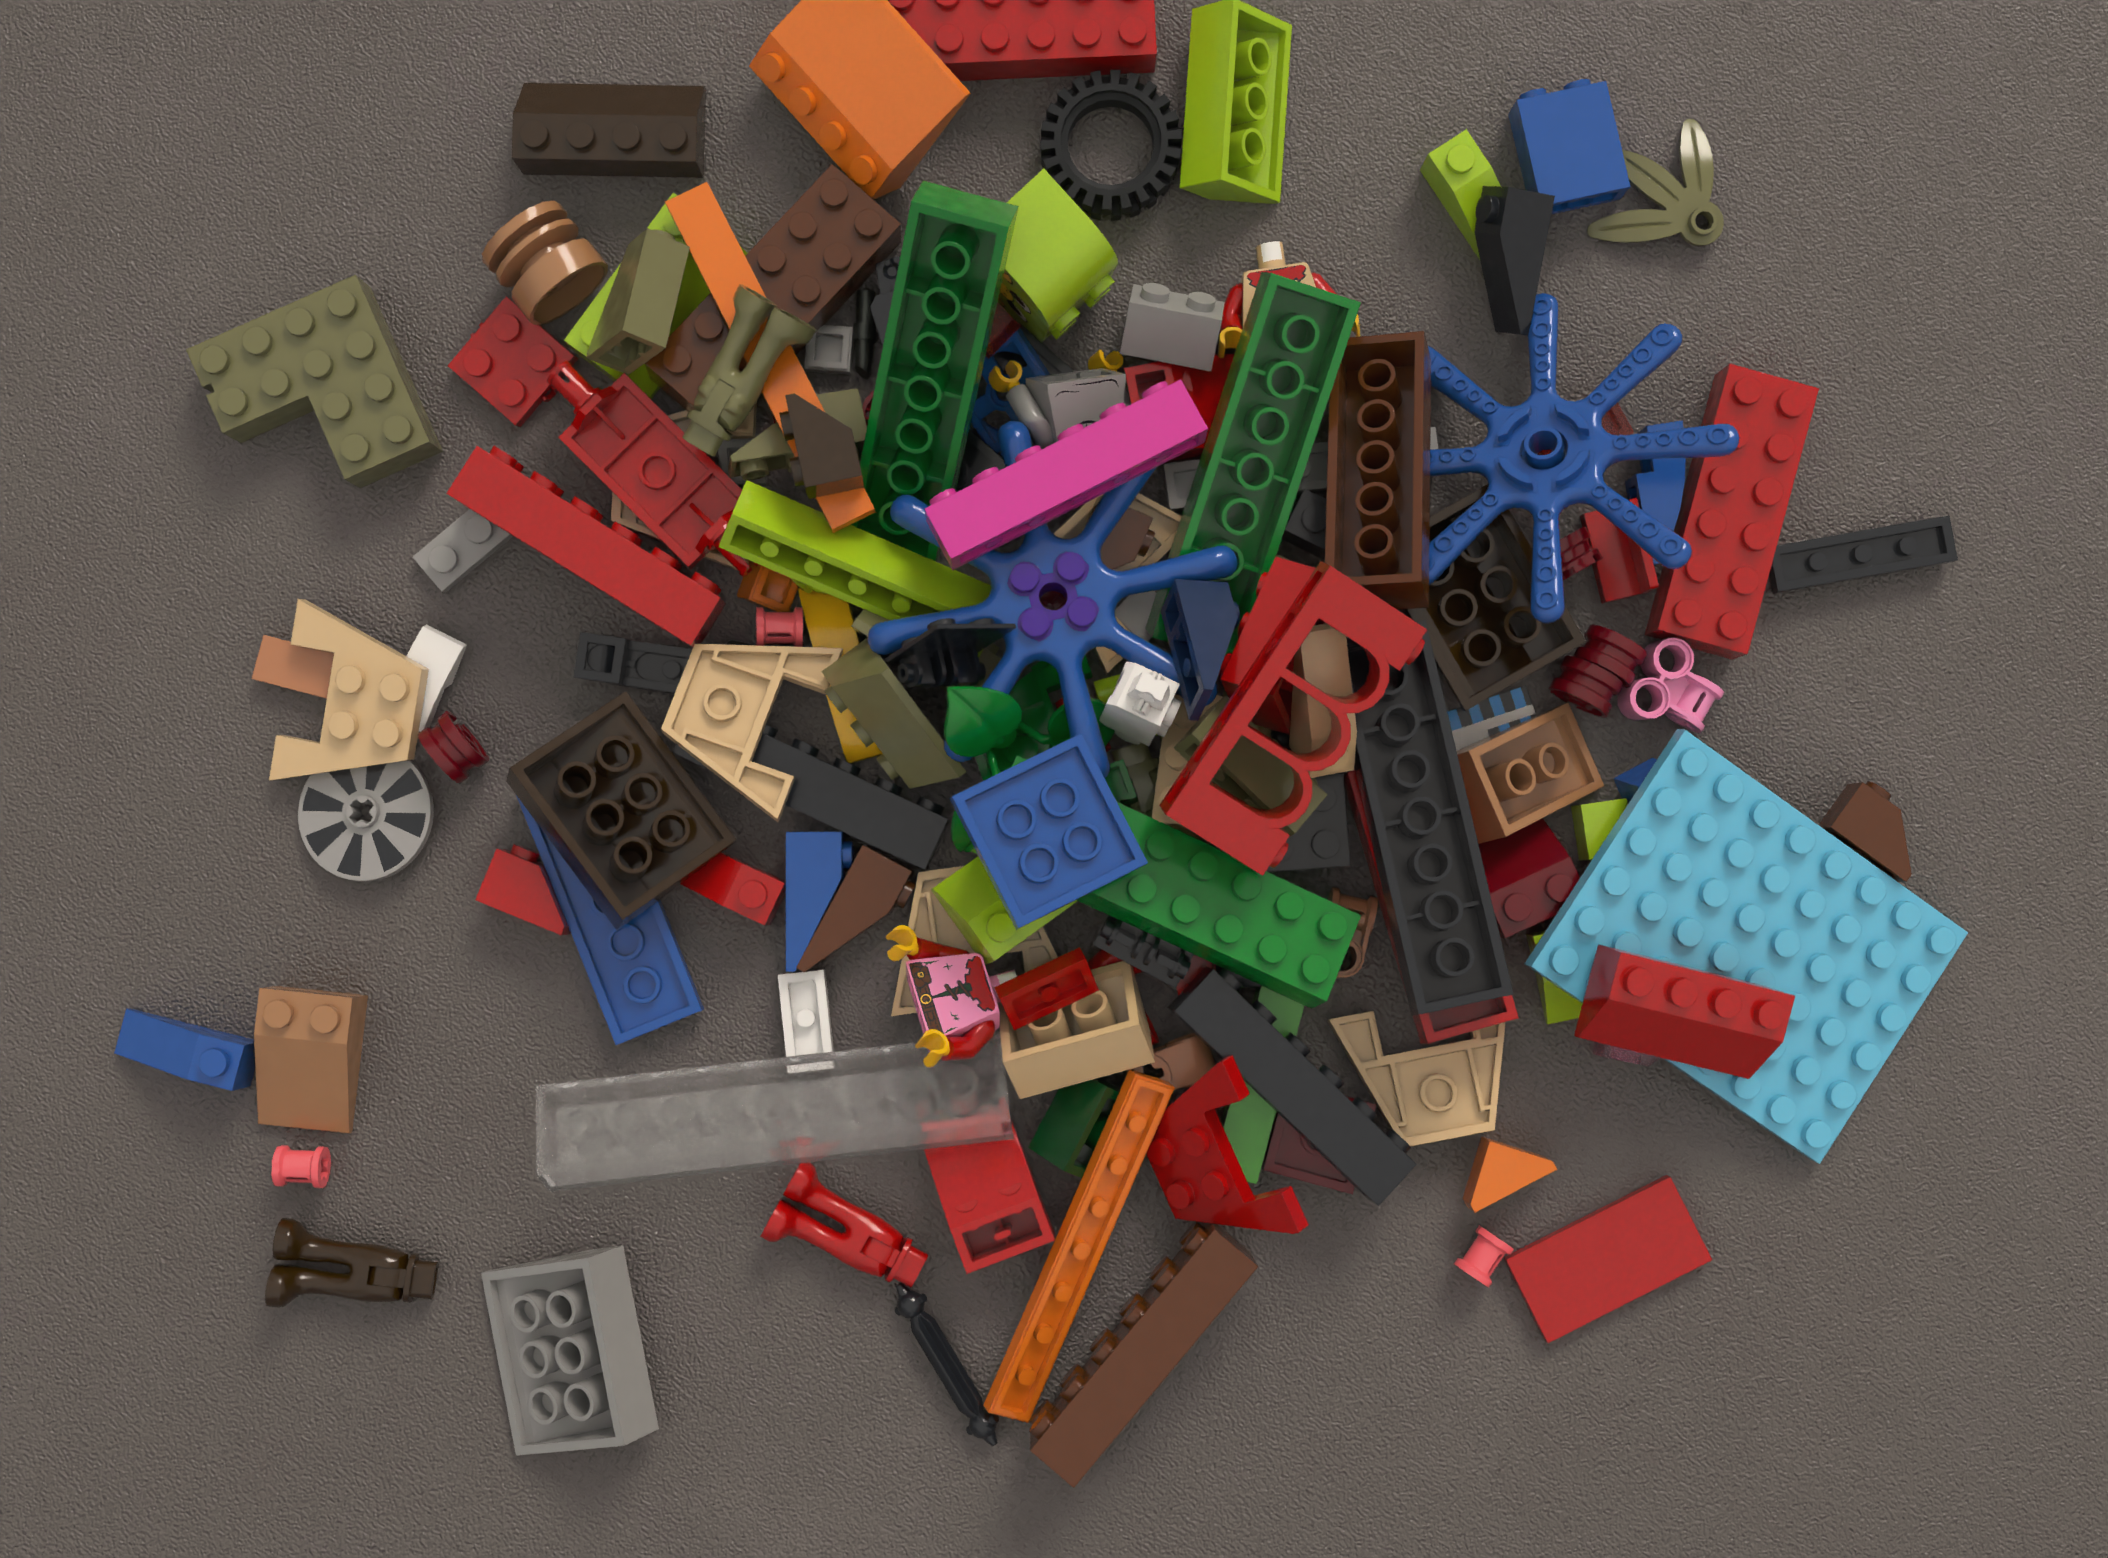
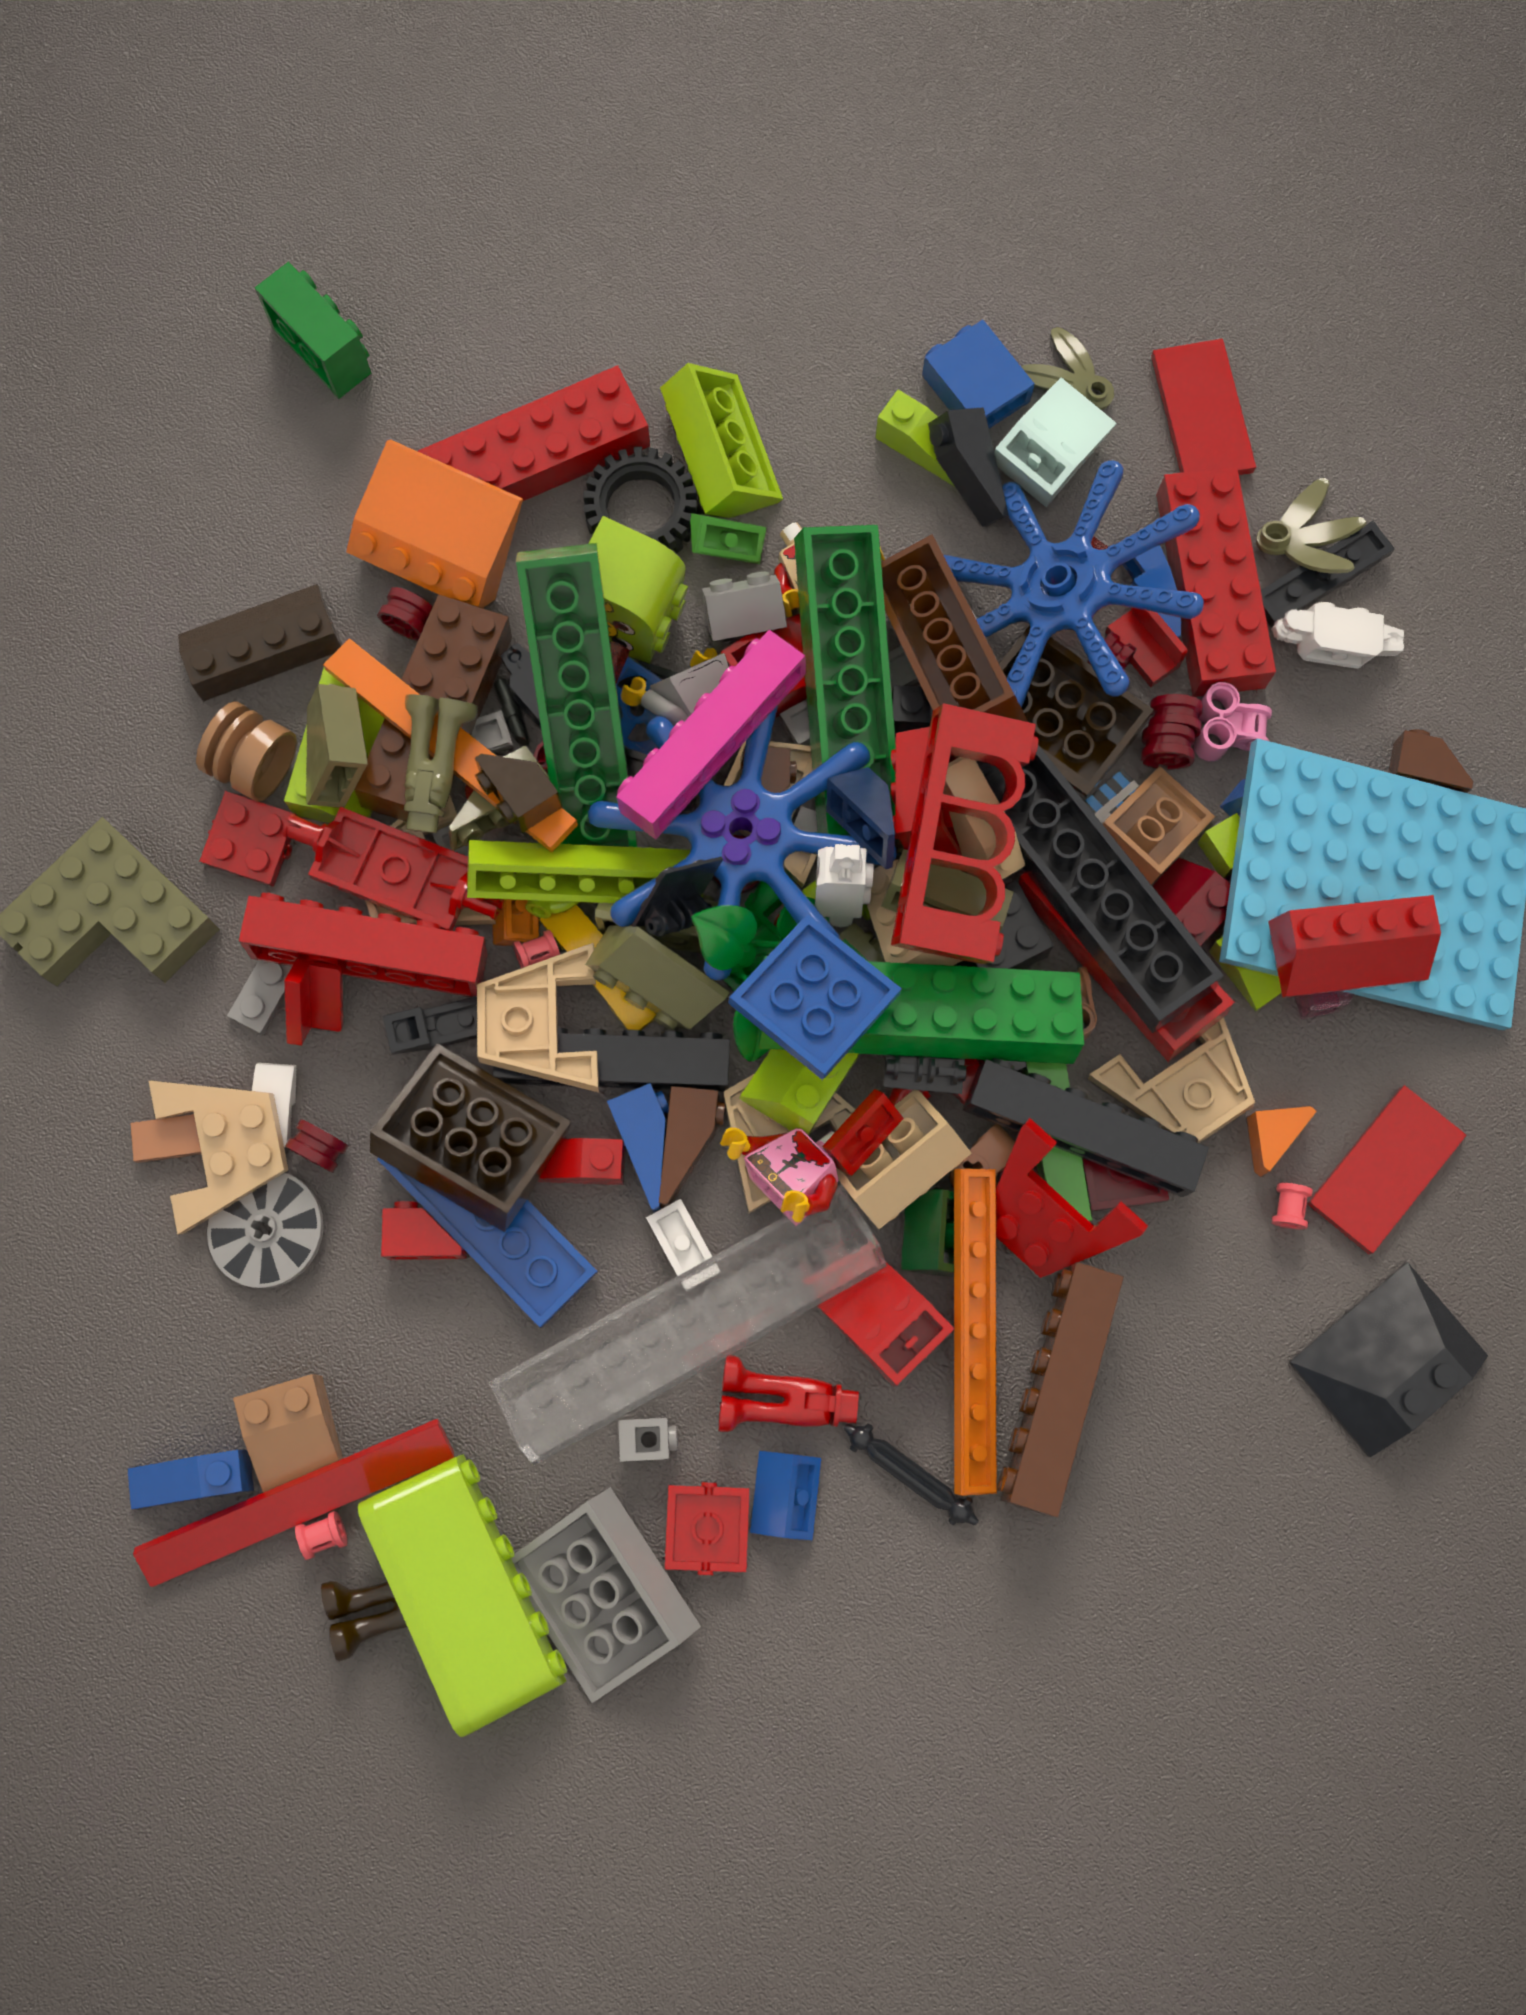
camera: 20 degrees left, 10 degrees down
(286, 1121) = (293, 1503): none -> red tile
(420, 1292) = (462, 1595): none -> lime windscreen
(509, 578) = (312, 999): none -> red panel
(666, 1220) = (631, 1436): none -> light grey brick
(707, 1330) = (707, 1528): none -> red plate
(788, 167) = (405, 613): none -> dark red wheel
(804, 1331) = (785, 1495): none -> blue panel
(1192, 227) = (727, 538): none -> bright green slope
(1514, 1464) = (1390, 1361): none -> black slope
(1622, 265) = (1052, 441): none -> light aqua slope
(1817, 295) = (1203, 407): none -> red tile
(1843, 637) = (1339, 635): none -> white hinge
(1849, 499) = (1297, 542): none -> olive plant

